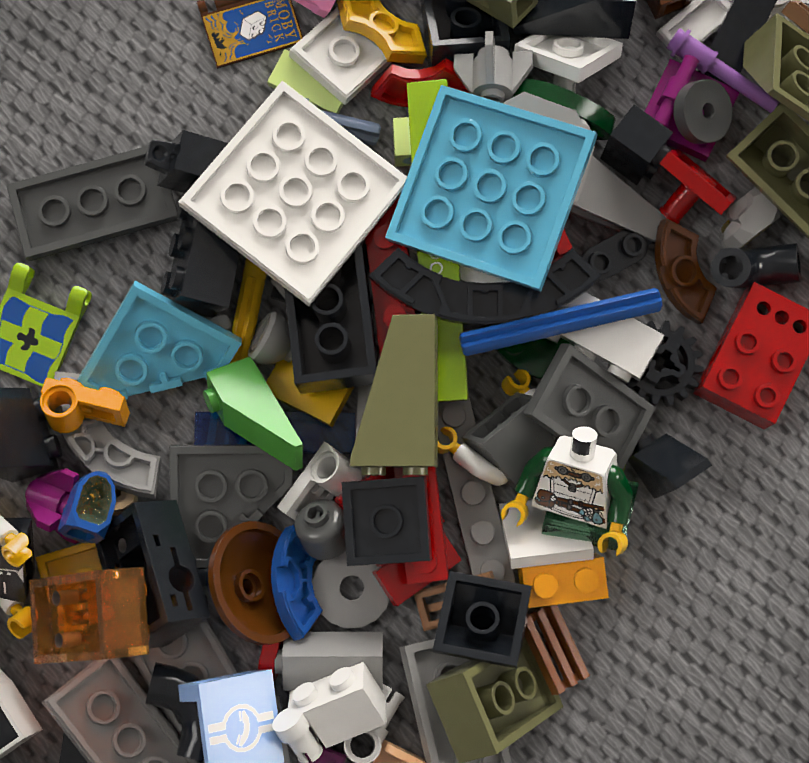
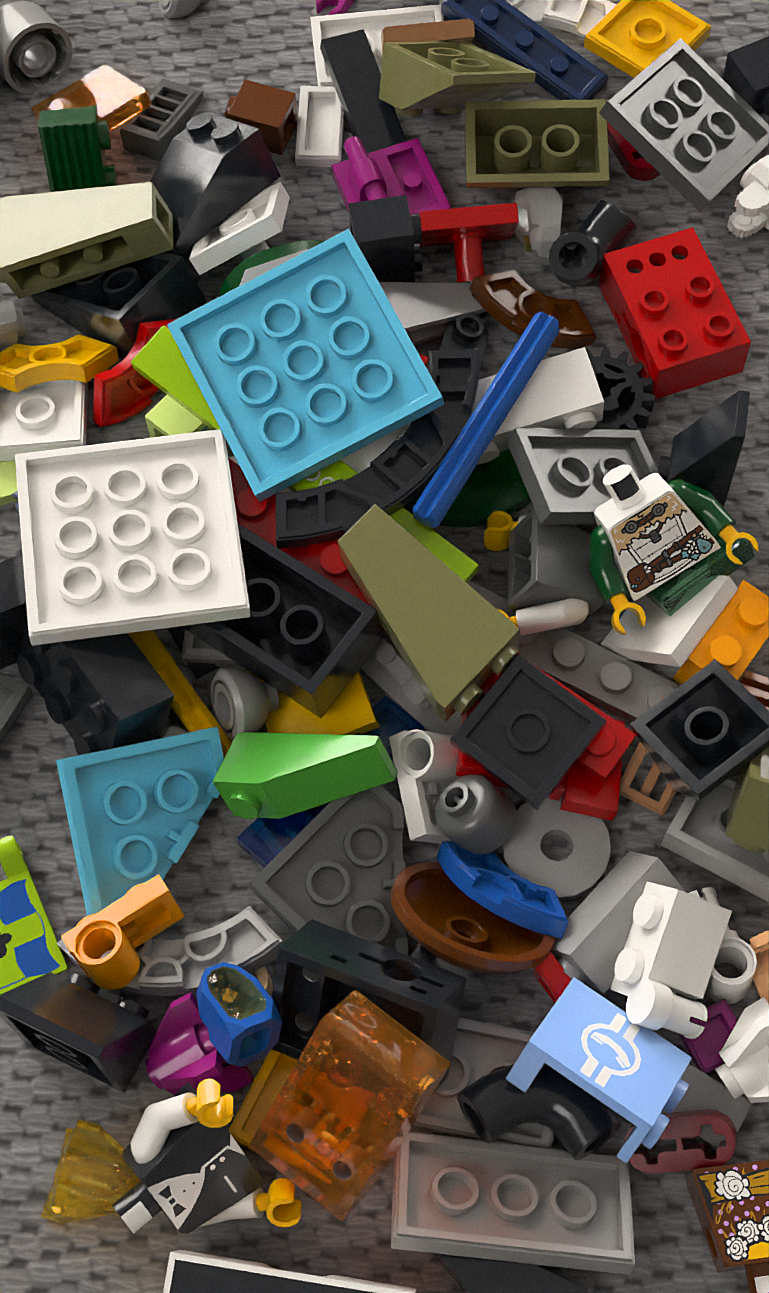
camera: 40 degrees left, 15 degrees down
(493, 71) = (190, 285): light grey brick -> none
(685, 44) = (330, 140): medium lavender pin -> none
(717, 108) = (408, 170): dark grey piece -> none

